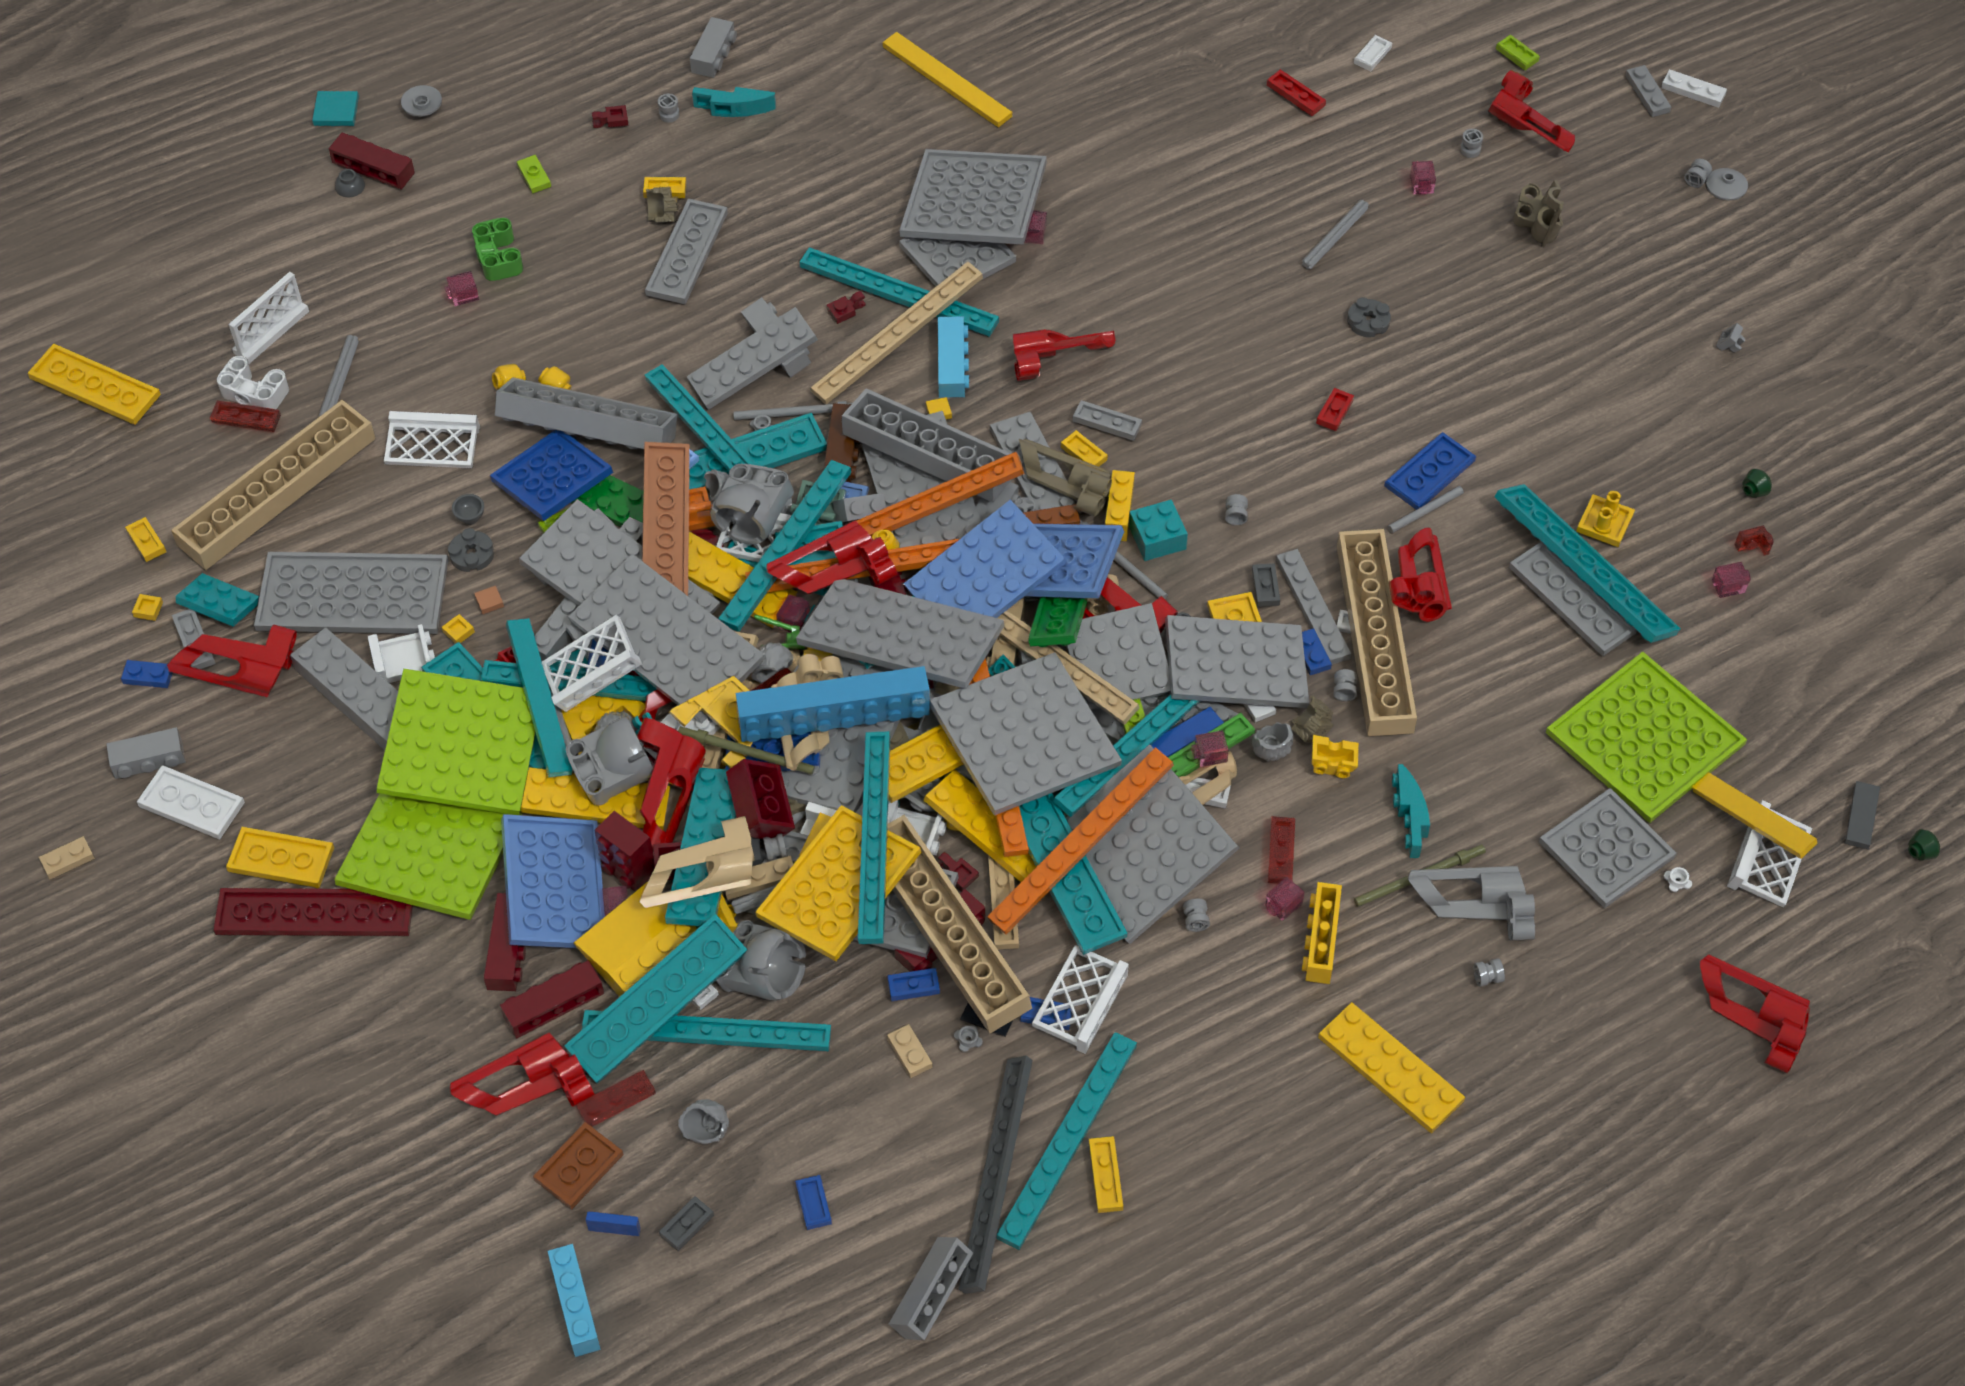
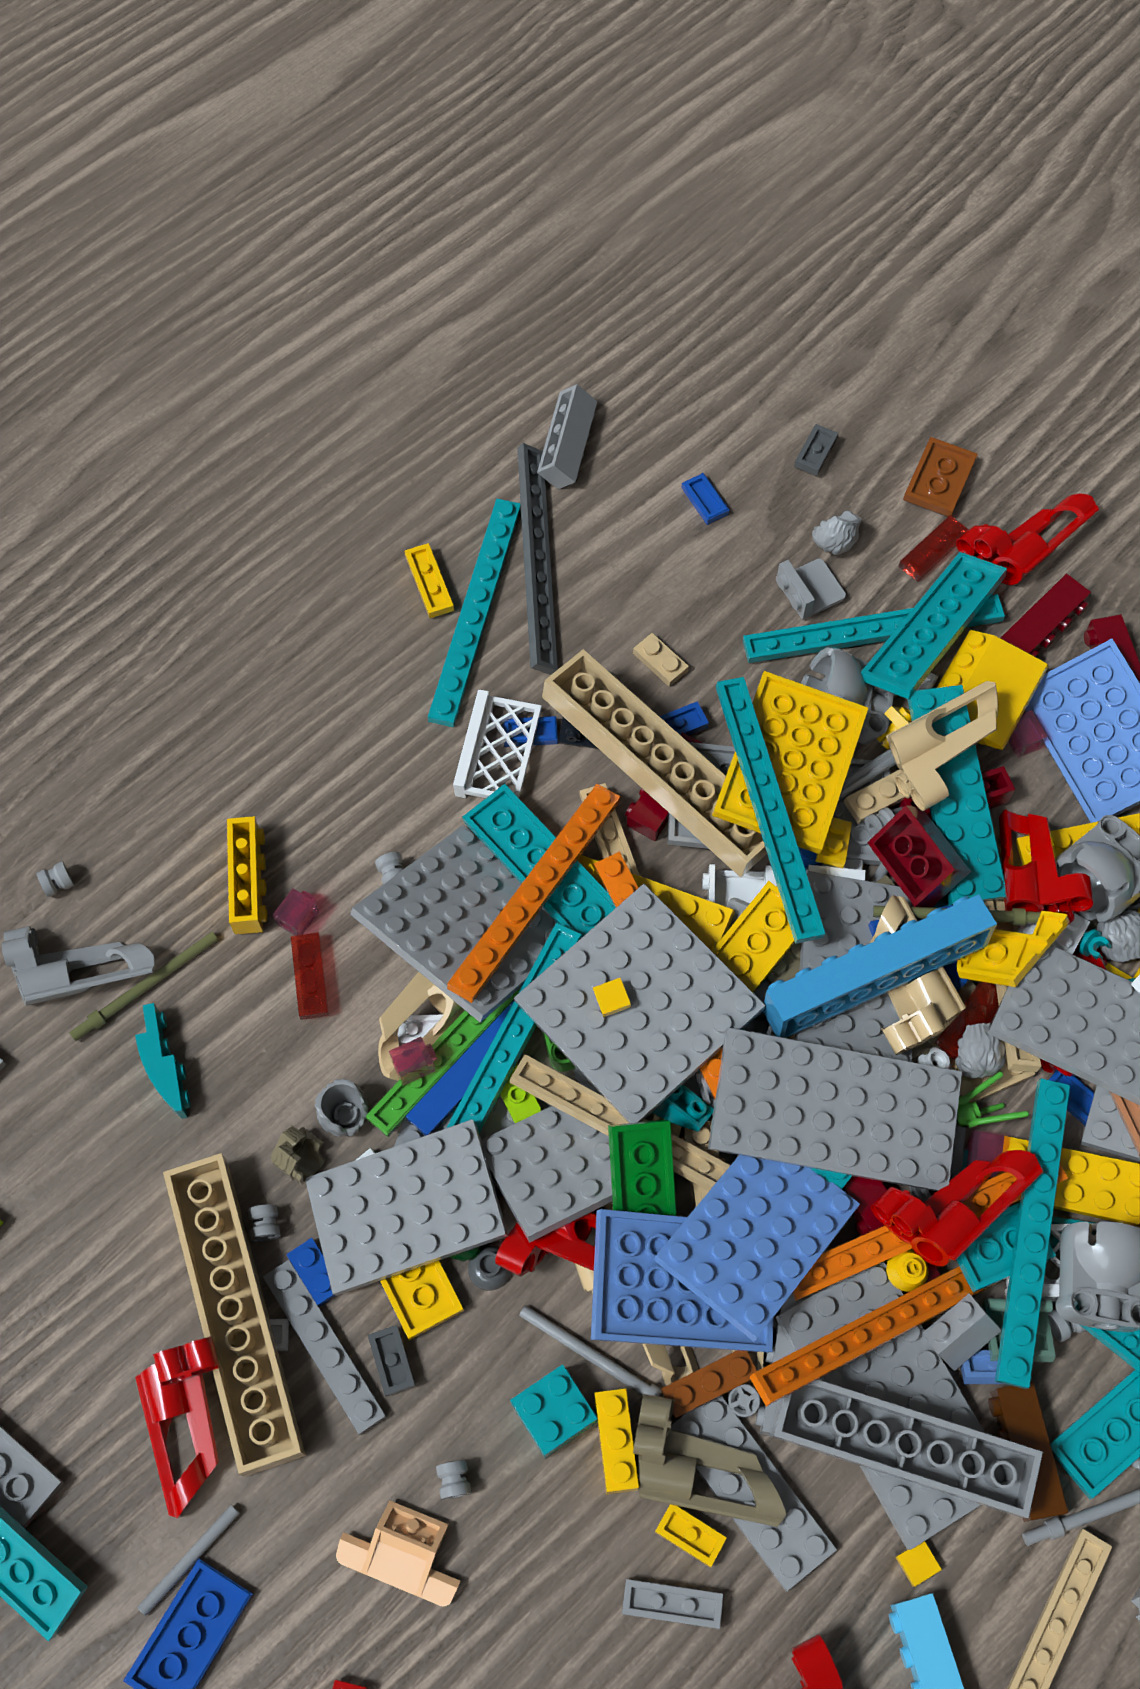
camera: 165 degrees right, 10 degrees up
(574, 1300) = (889, 362): medium azure brick -> none
(613, 1223) = (883, 432): blue tile -> none
(624, 851) = (1043, 768): dark red brick -> none
(749, 1082) = (809, 587): none -> light grey bracket
(965, 871) = (669, 859): dark red plate -> none
(1046, 730) = (611, 997): none -> yellow tile
(1277, 482) = (402, 1554): none -> light nougat plate
(1333, 757) = (263, 1113): yellow cylinder -> none
(1391, 1067) = (155, 757): yellow plate -> none

